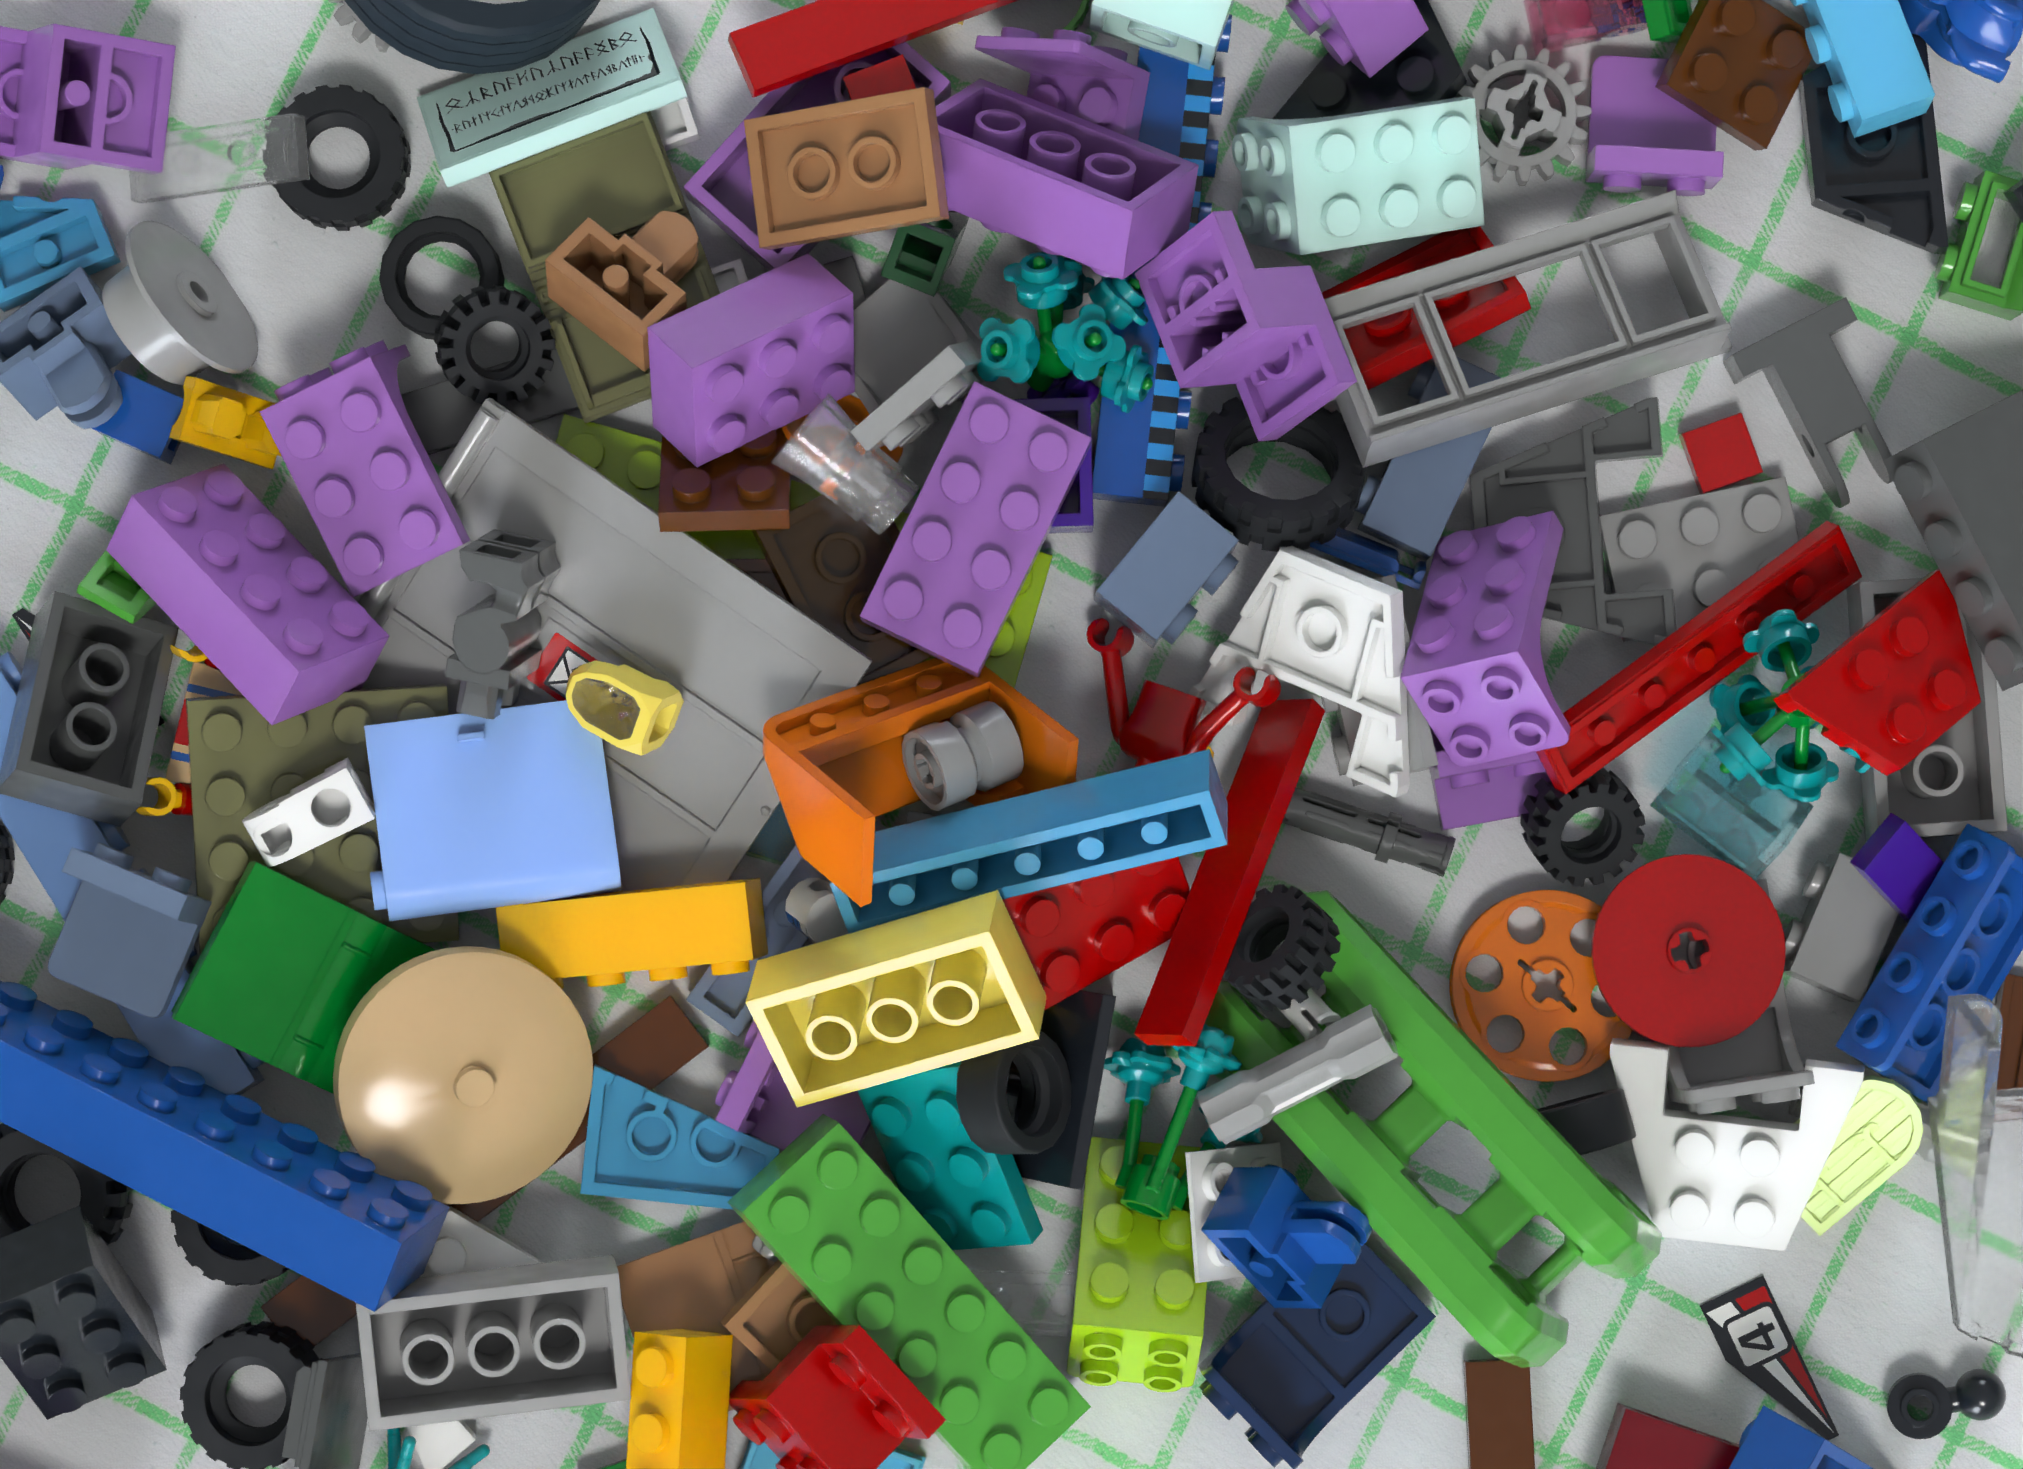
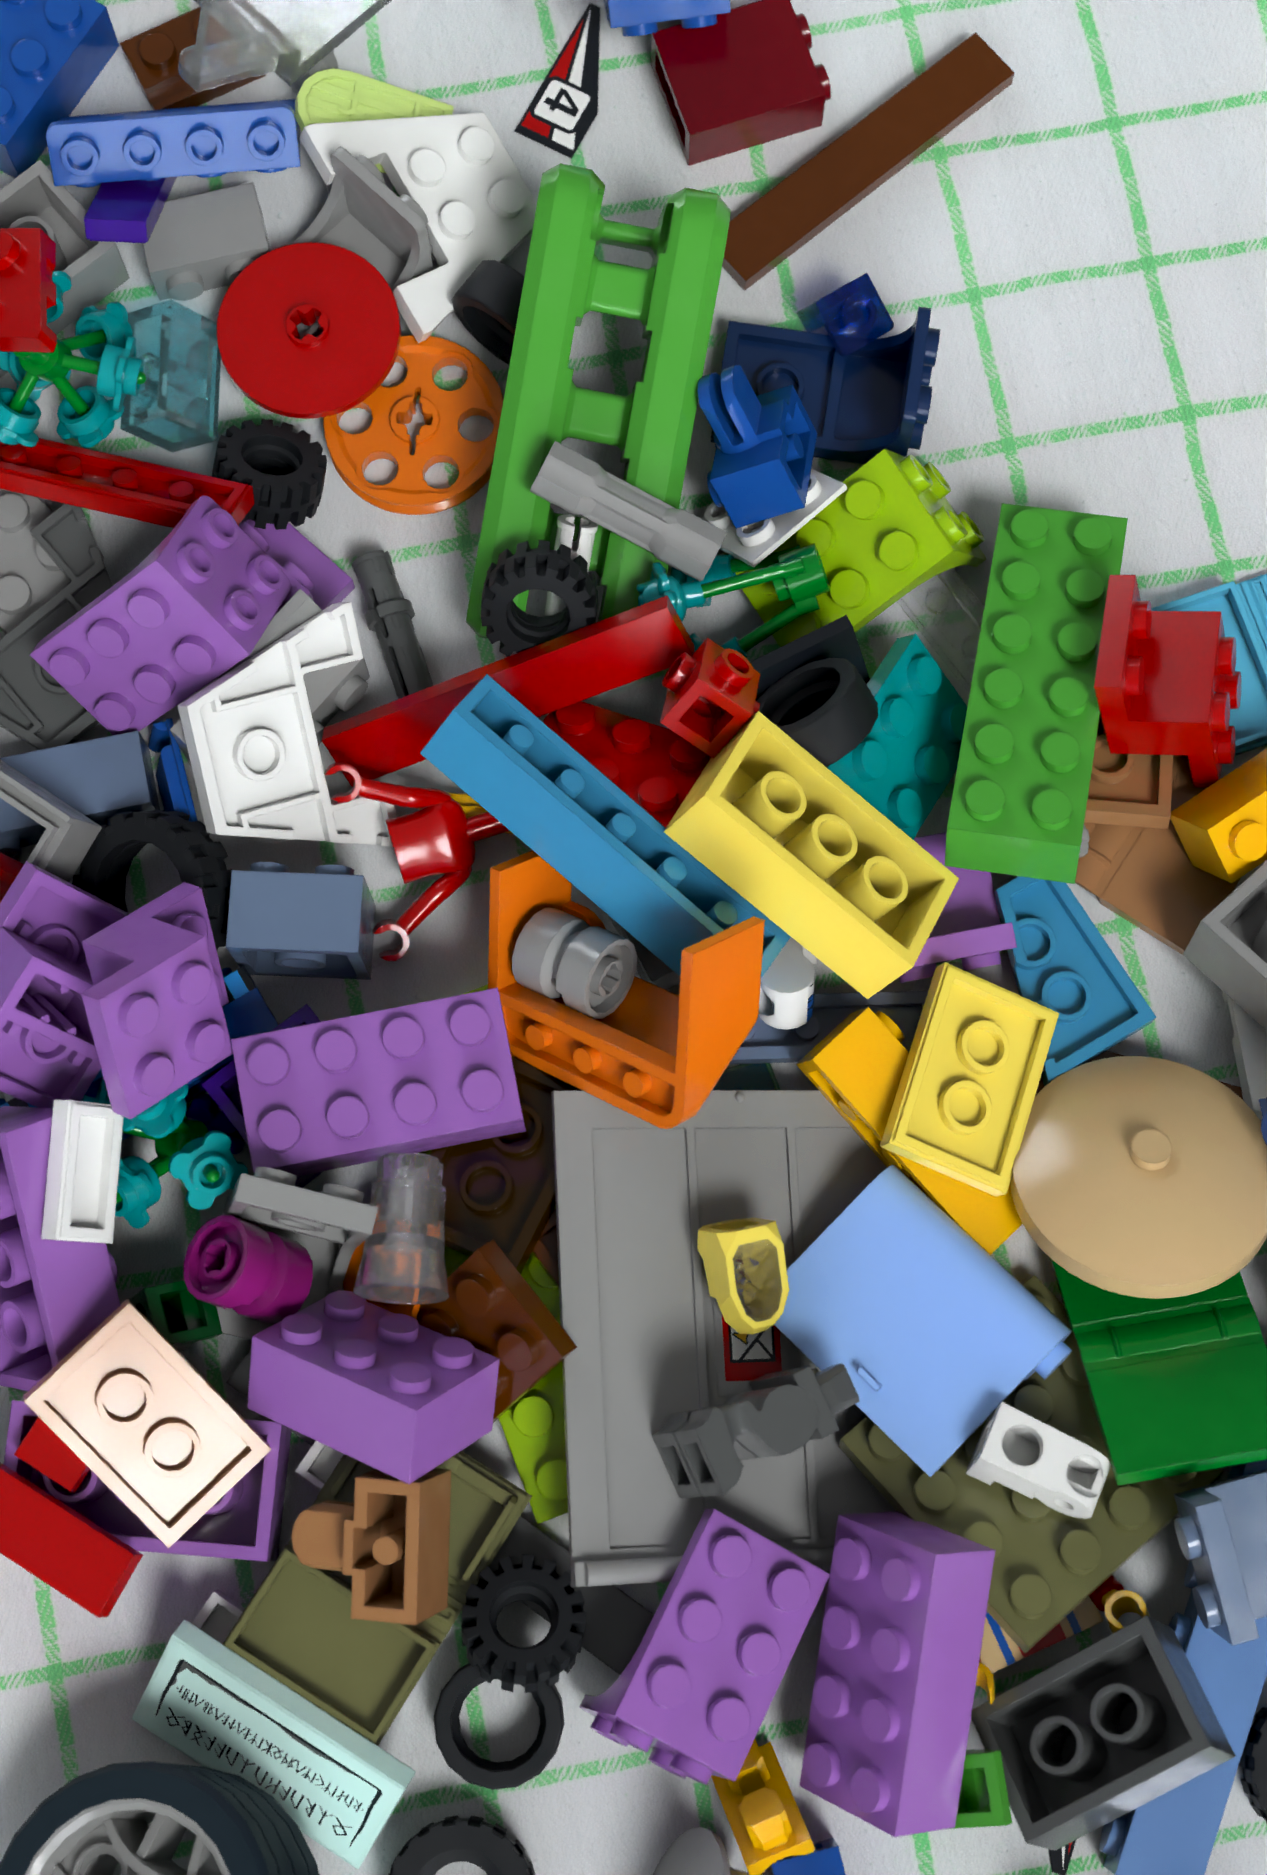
camera: 125 degrees left, 10 degrees down
(638, 998) = (970, 1080): none -> light yellow tile
(911, 327) = (247, 1269): none -> magenta wheel
(1068, 251) = (82, 1172): none -> white tile
(1085, 1015) = (710, 696): none -> red brick
(1163, 403) = (156, 1000): none -> medium lavender bracket
(1364, 1419) = (850, 315): none -> clear blue bracket

